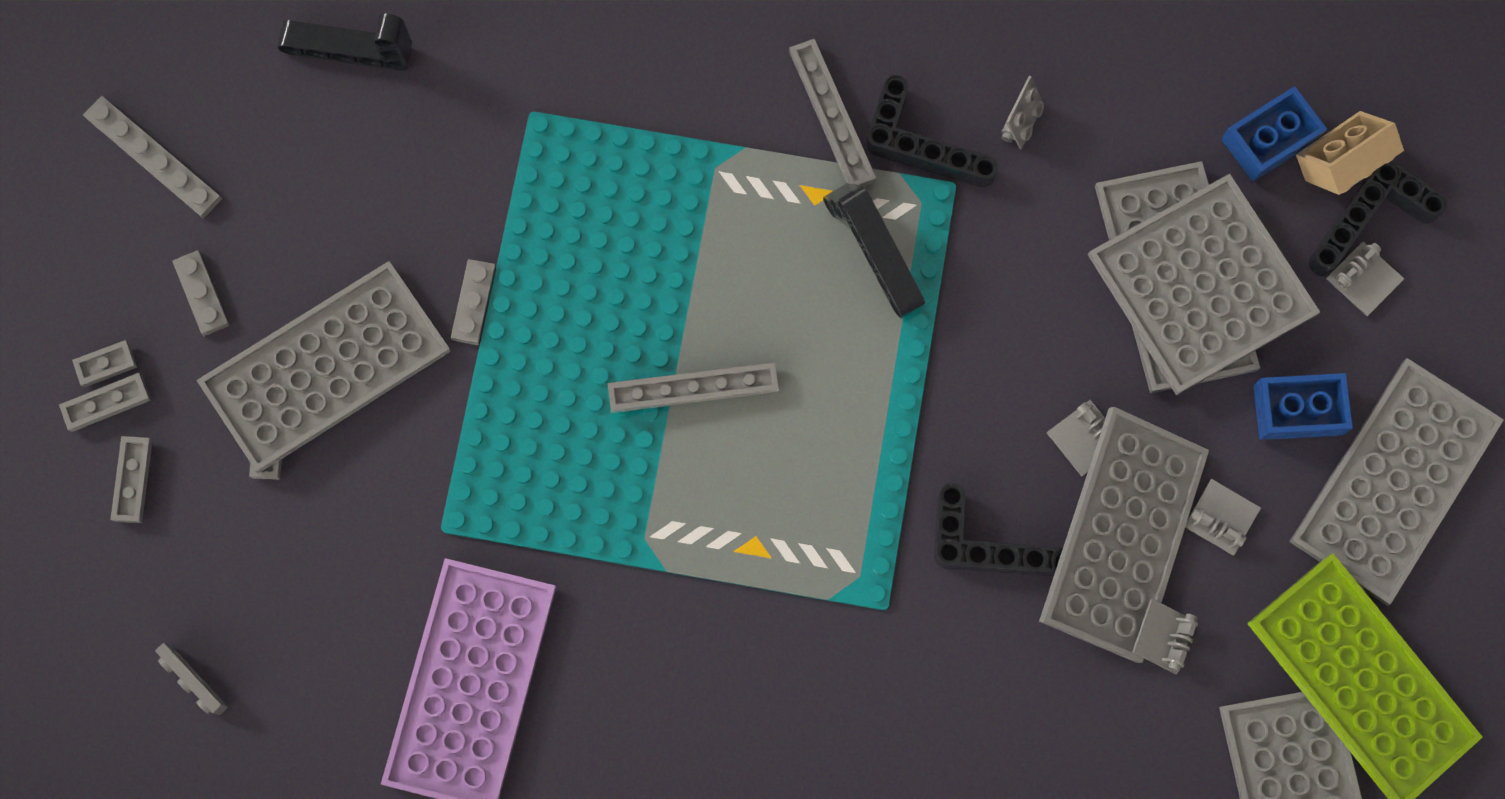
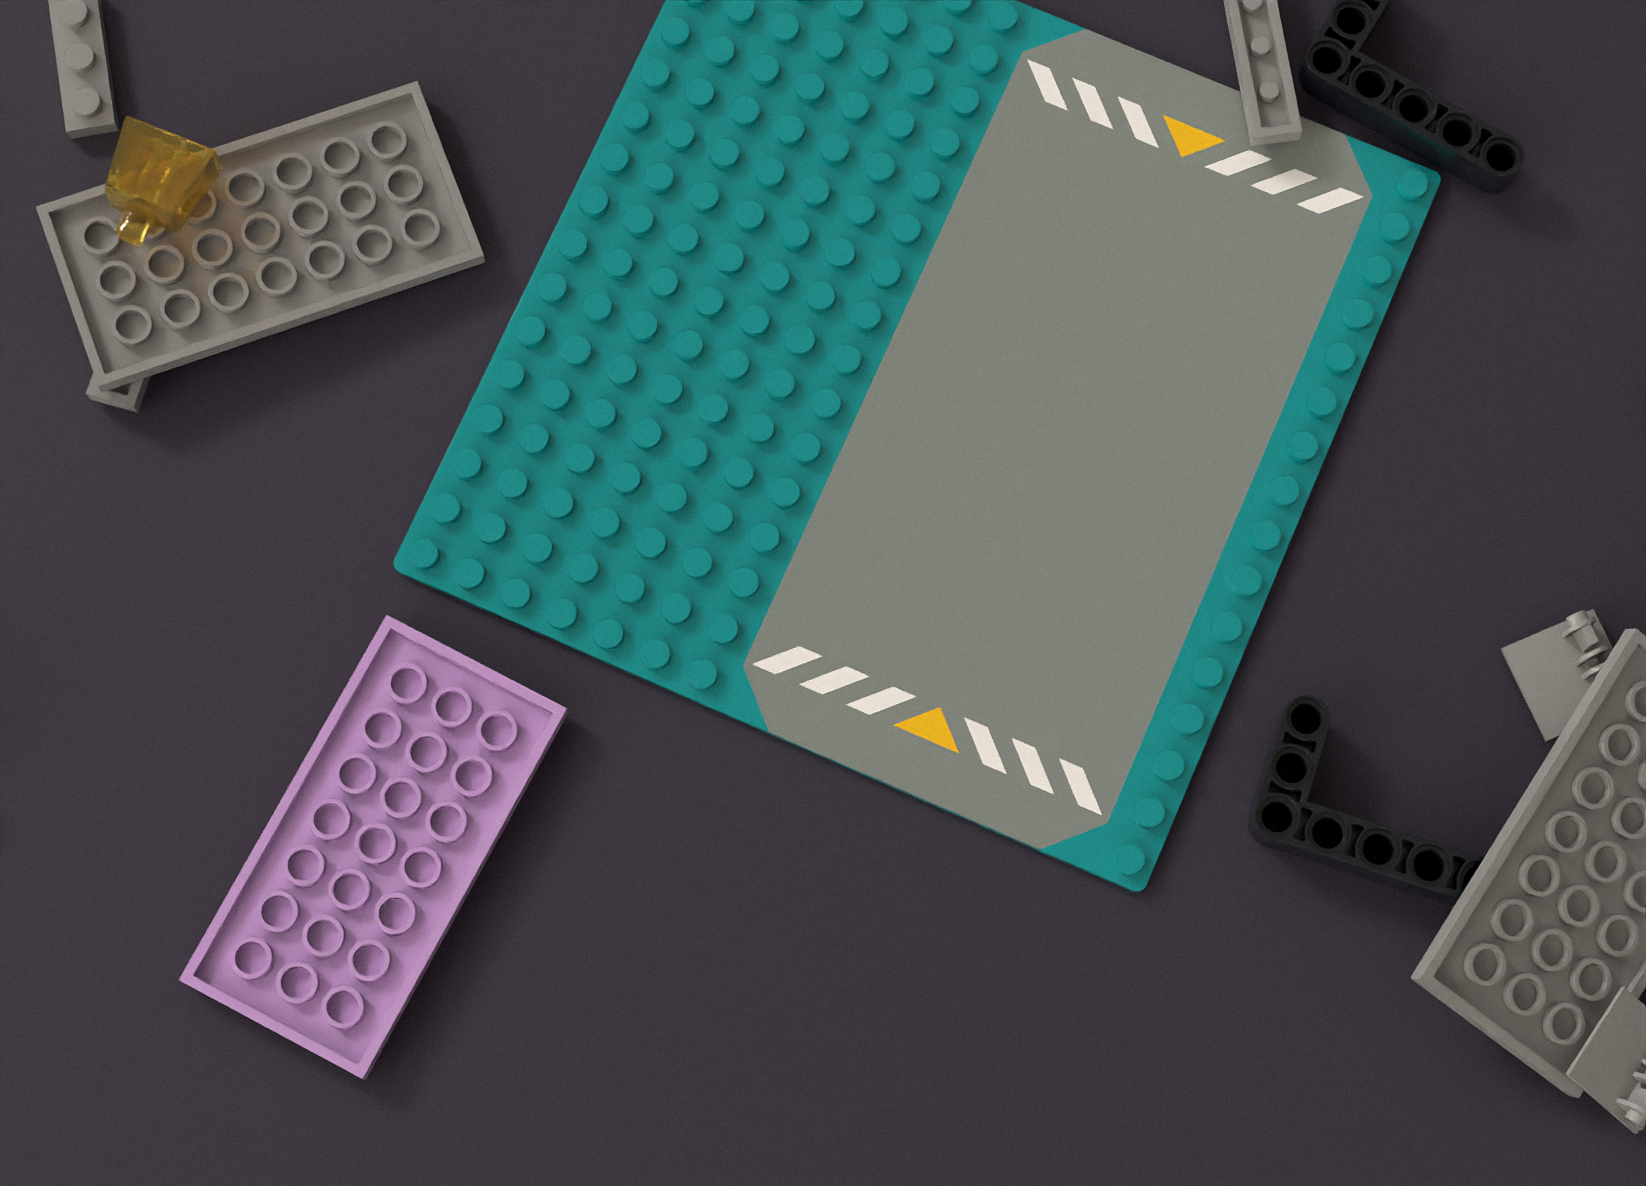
camera: 15 degrees right, 0 degrees up
(260, 350) = (157, 179): none -> clear yellow torso
(473, 302) = (545, 186): light grey plate -> none
(693, 387) = (892, 421): light grey plate -> none
(857, 208) = (1282, 264): black beam -> none
(1023, 115) = (1591, 81): light grey hinge -> none

